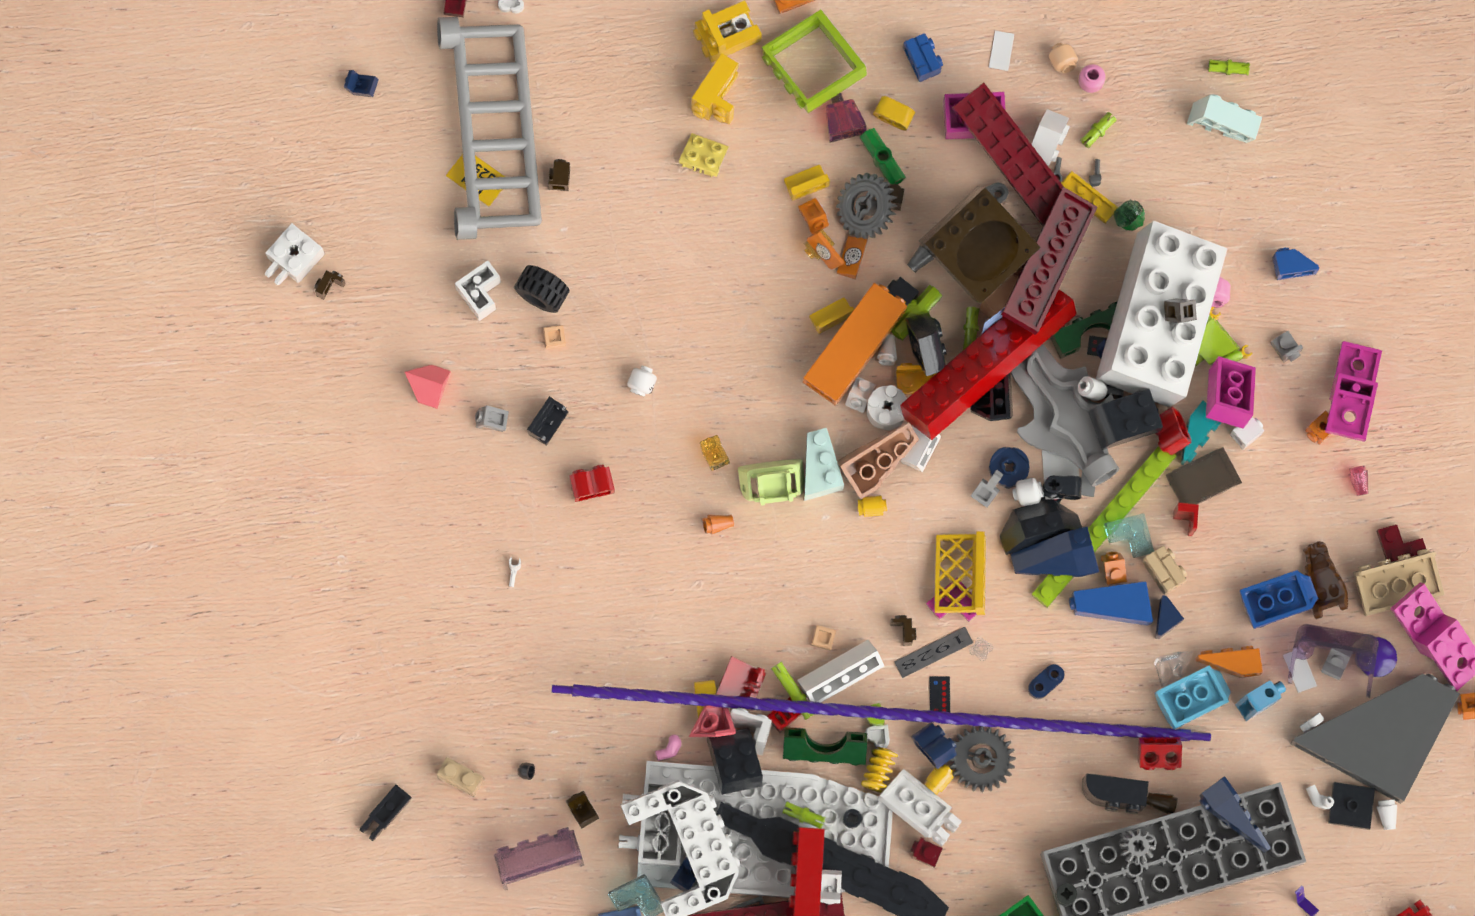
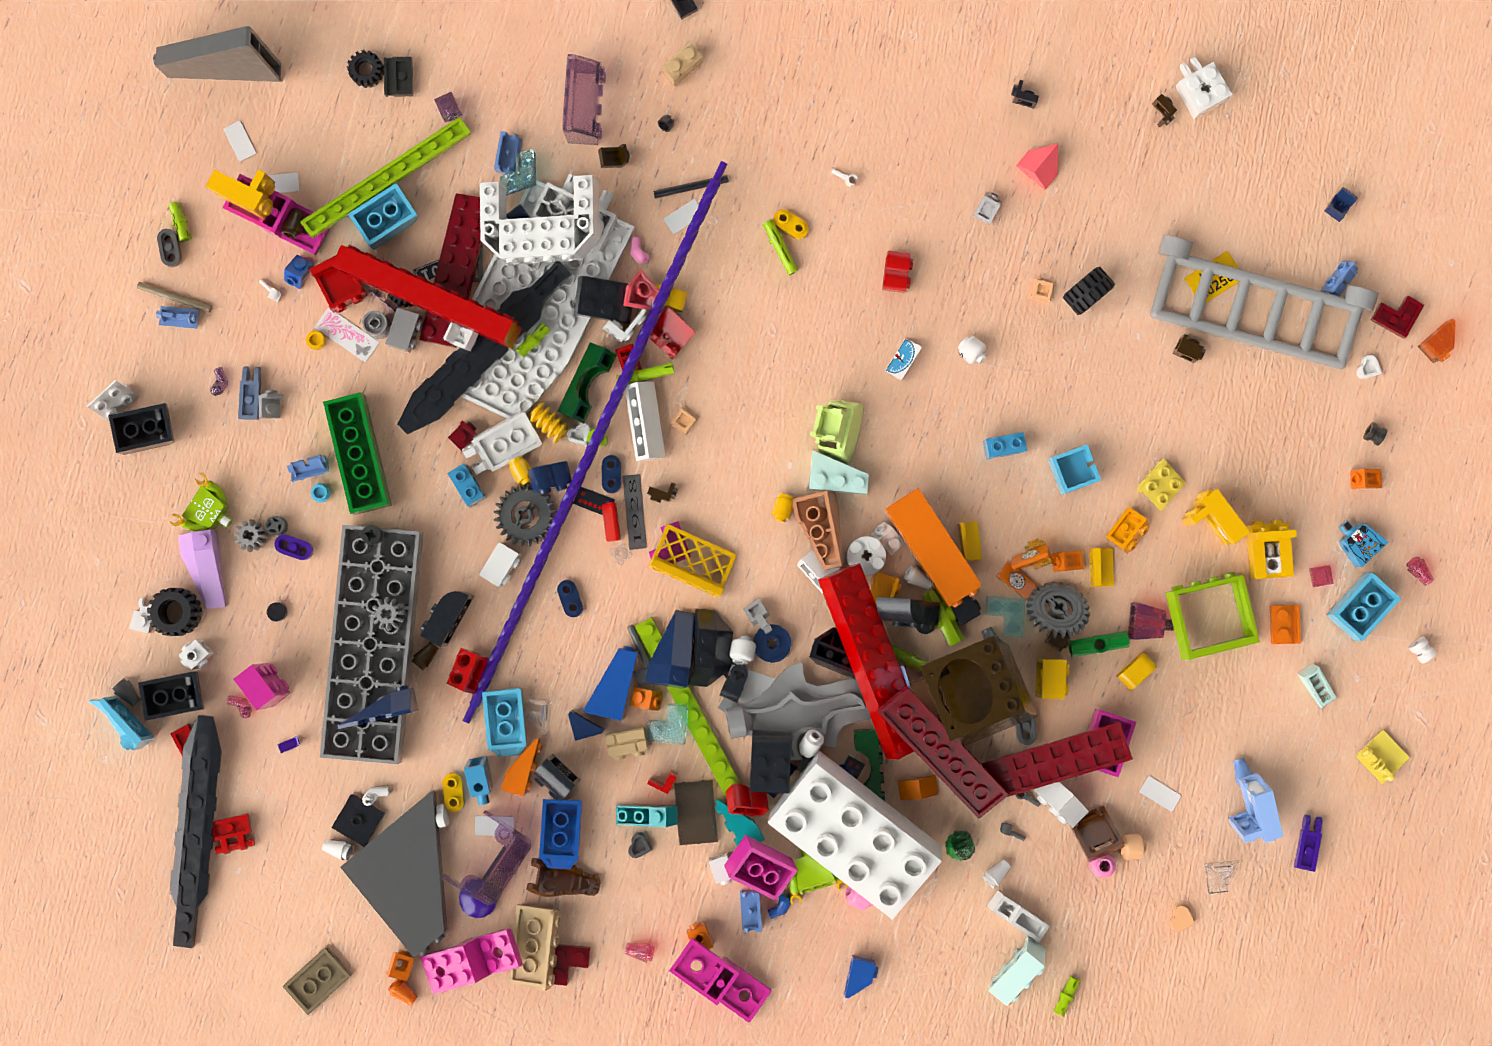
camera: 115 degrees right, 10 degrees up
(366, 422) = (1024, 98): none -> black bracket
(425, 57) = (1344, 272): none -> medium blue hinge
(474, 289) = (1112, 234): white brick -> none
(547, 421) = (967, 254): black hinge -> none
(582, 606) = (790, 224): none -> yellow plate
(584, 725) = (686, 187): none -> black bar
(604, 614) = (780, 247): none -> lime pin
(615, 718) = (681, 217): none -> white sticker
(676, 445) = (903, 359): none -> slope
(714, 452) = (883, 388): clear yellow bracket -> none
(717, 523) = (819, 367): orange cone -> none
(724, 242) = (1072, 471): none -> medium azure piece
(725, 315) = (1005, 445): none -> dark azure brick
(760, 169) = (1128, 530): none -> light orange bracket
(849, 824) = (510, 377): black bush -> none
(883, 250) = (1013, 612): none -> clear light blue plate
(906, 689) = (611, 474): none -> dark blue plate
(922, 57) = (1180, 718): blue brick -> none
(935, 188) = (1051, 678): none -> yellow brick
(954, 669) = (611, 522): none -> slope
(975, 826) = (467, 485): none -> dark azure brick
(1041, 762) = (500, 565): none -> white brick
(1063, 95) = (1095, 831): none -> reddish brown container
(1077, 185) = (1001, 812): yellow tile -> none
(1091, 276) = (918, 788): none -> orange slope
(1092, 581) = (639, 674): none -> dark grey piece
(1098, 130) = (1052, 850): lime pin -> none
(1142, 173) = (996, 873): none -> white cone
(1173, 139) = (1018, 916): none -> white slope
(1180, 310) = (846, 849): dark brown brick -> none
(1226, 523) = (647, 815): none -> teal slope
(1228, 618) = (556, 777): none -> black brick
(1259, 520) = (639, 845): none -> dark grey tile
(1261, 361) = (782, 907): none -> blue arm
(1275, 389) = (750, 910): none -> medium blue hinge
(1284, 721) = (455, 792): none -> yellow plate
(1286, 347) = (786, 937): light grey bracket -> none
(1336, 662) = (483, 857): light grey bracket -> none

